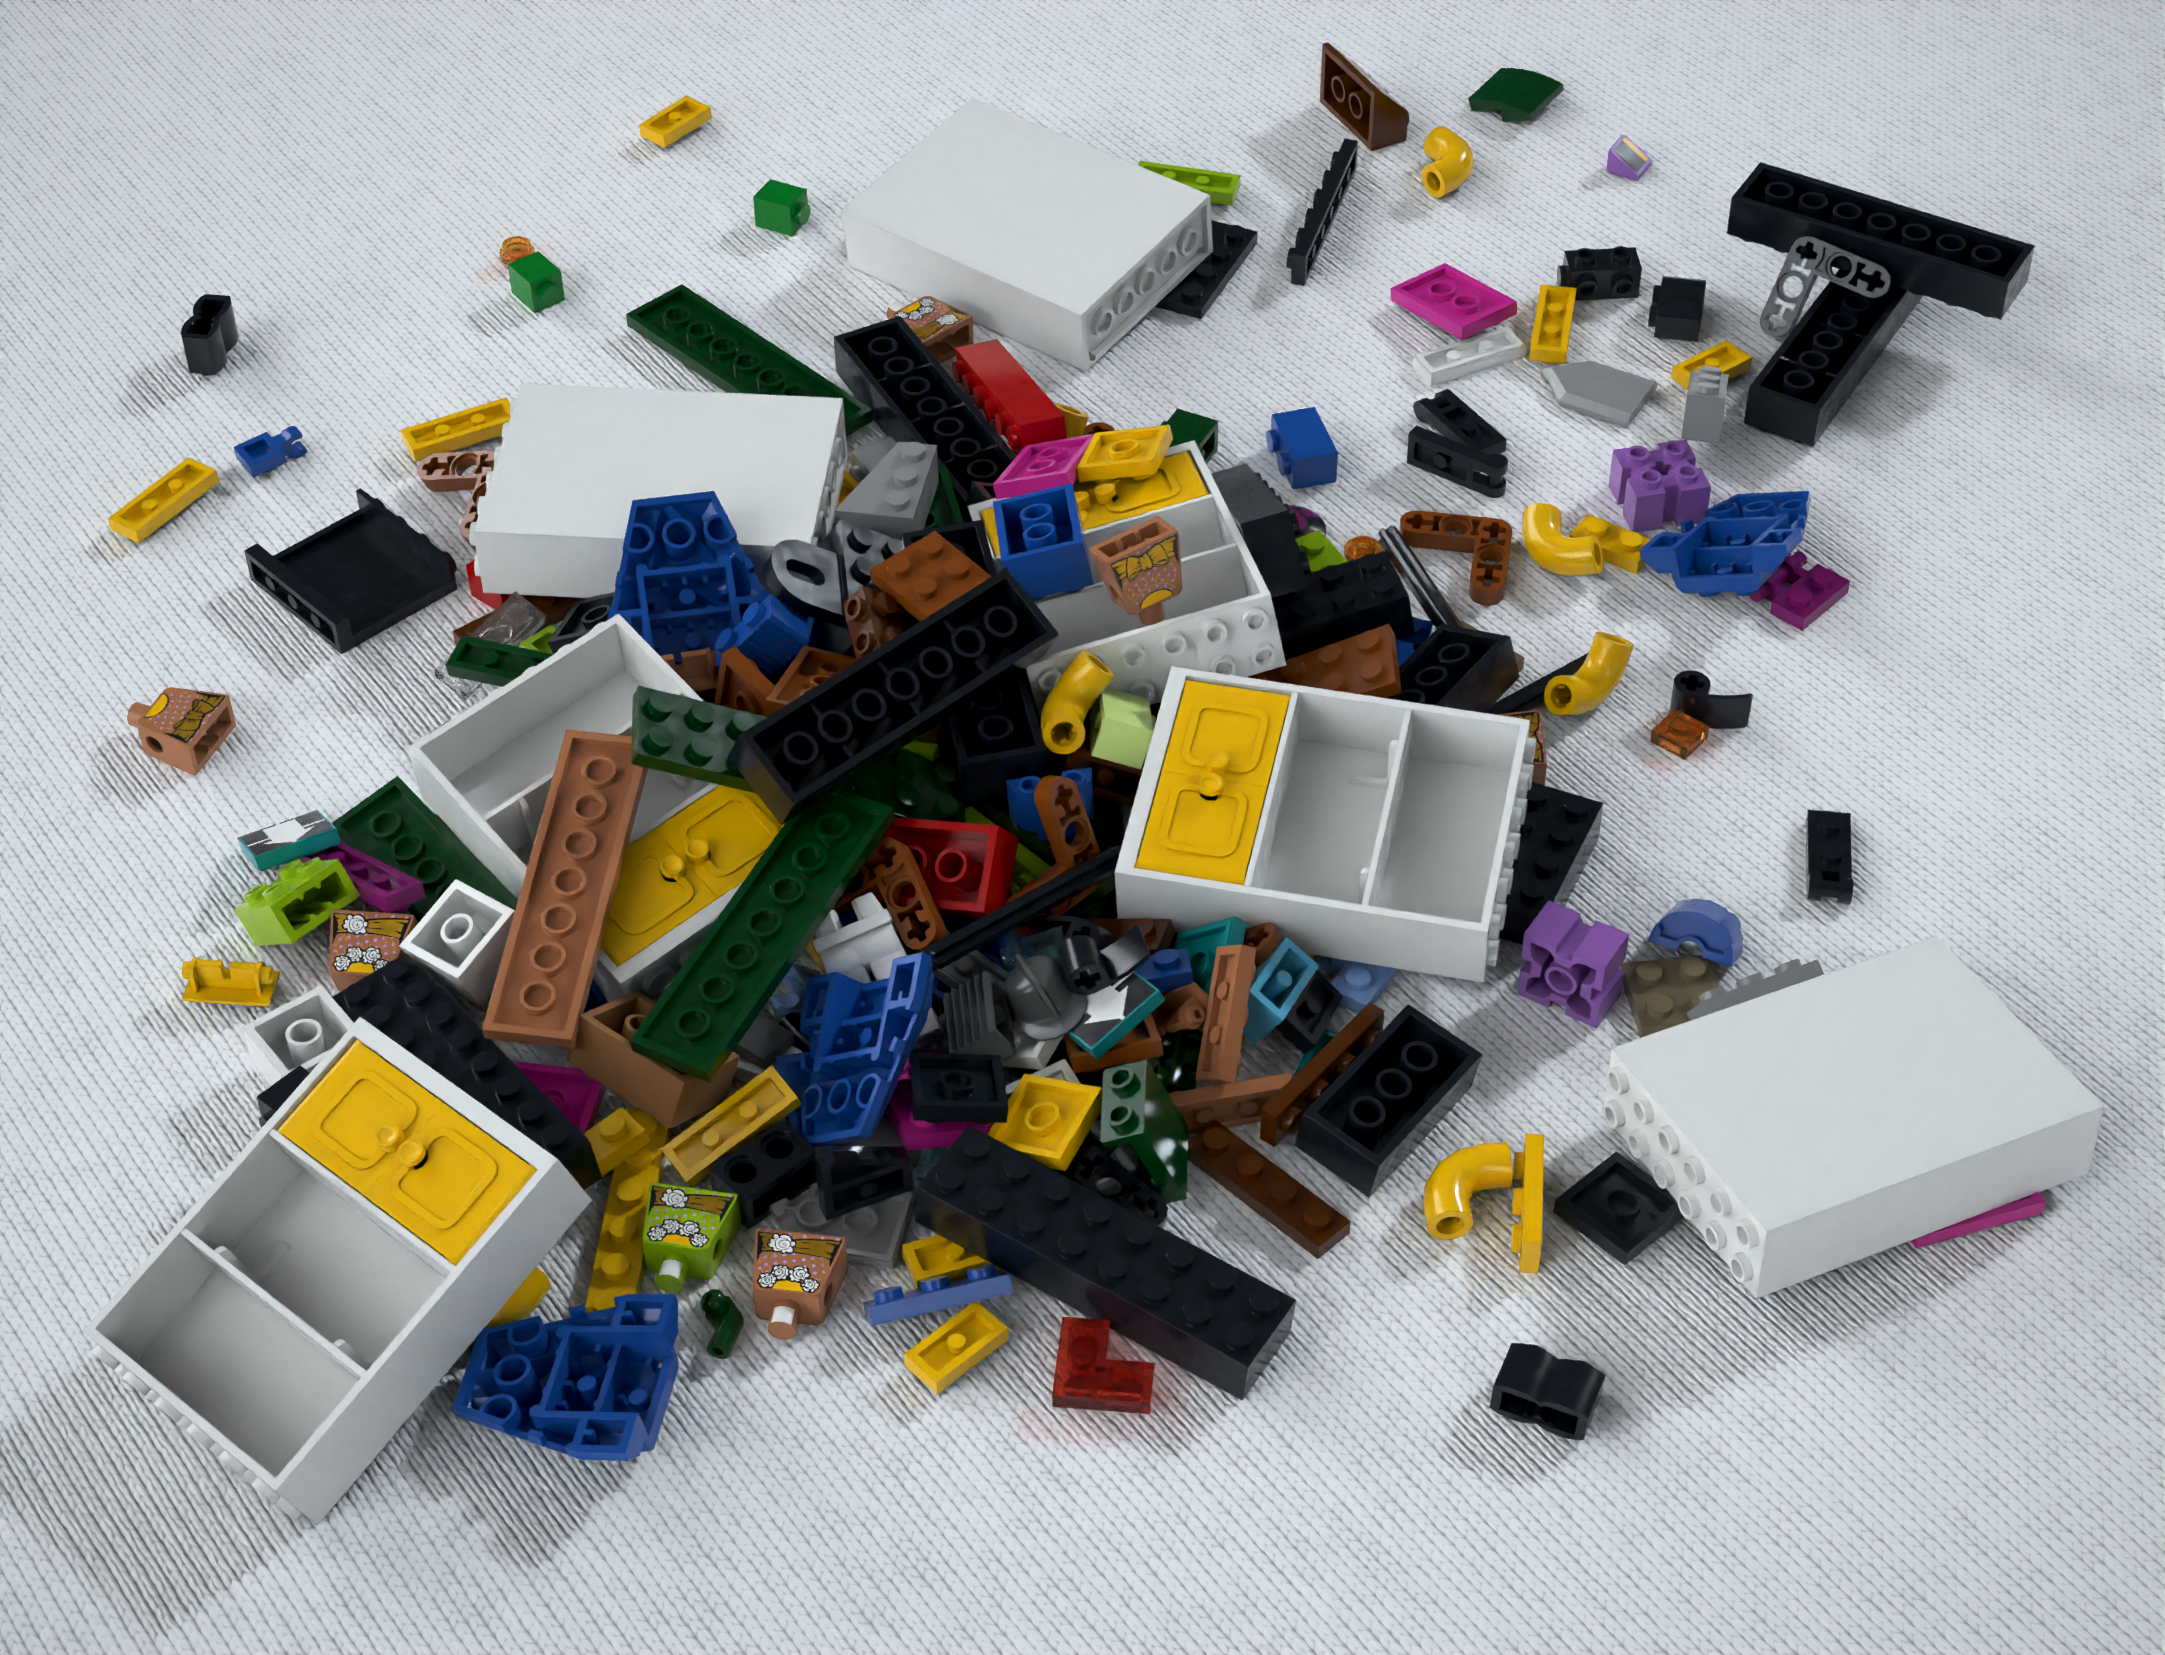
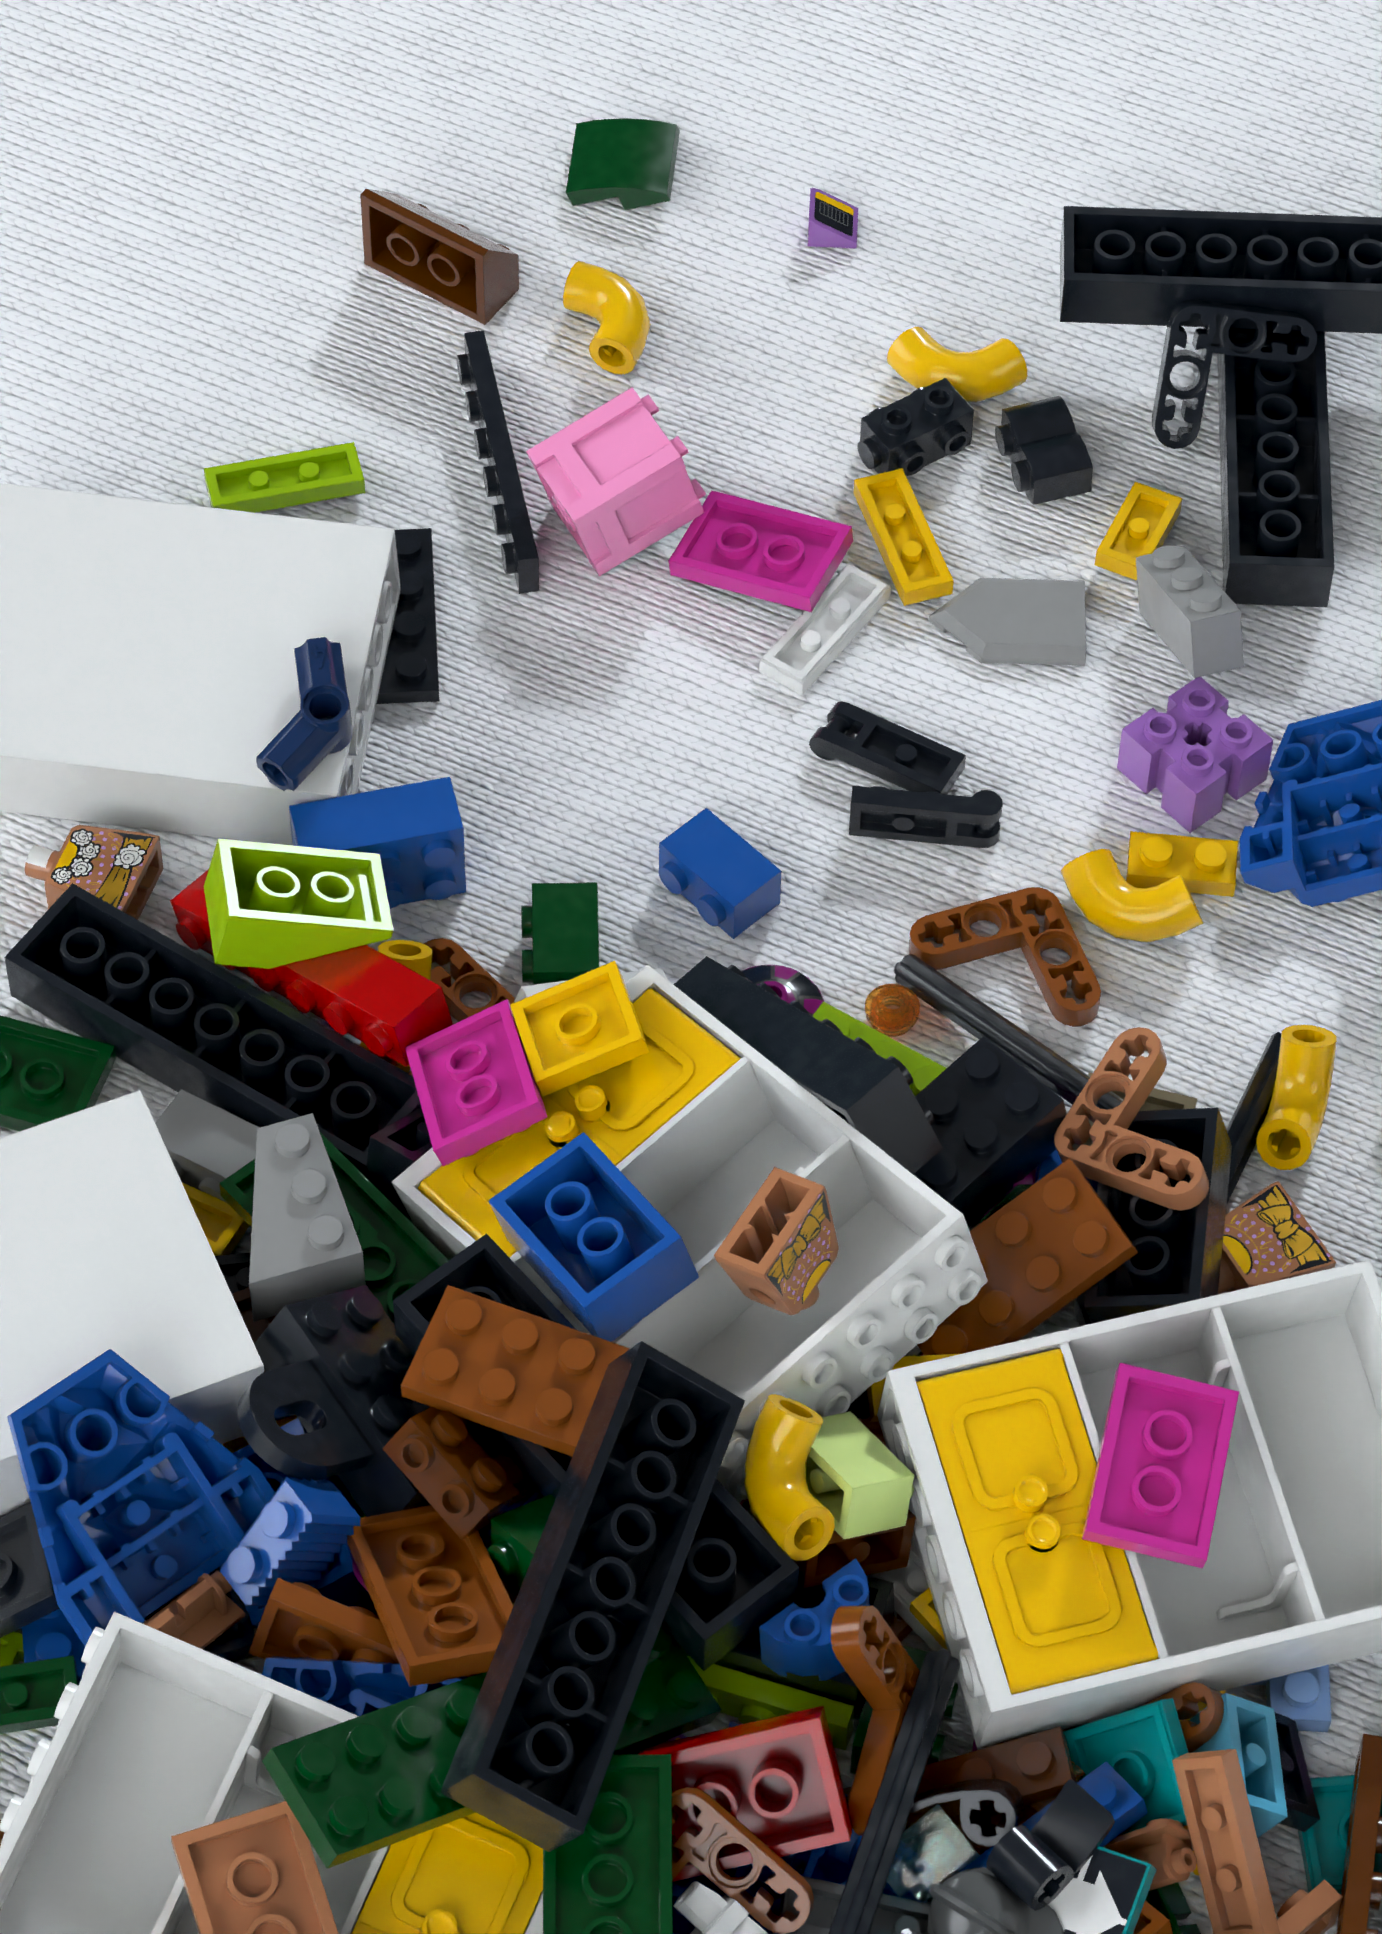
camera: 30 degrees left, 10 degrees up
(1010, 353) = (292, 902): none -> lime slope
(1092, 269) = (306, 738): none -> dark blue piece
(1097, 362) = (410, 827): none -> blue brick
(1308, 773) = (1161, 1465): none -> dark pink plate
(1380, 231) = (617, 480): none -> bright pink container
(1427, 630) = (1110, 1126): none -> nougat beam
(1655, 256) = (973, 374): none -> yellow cylinder

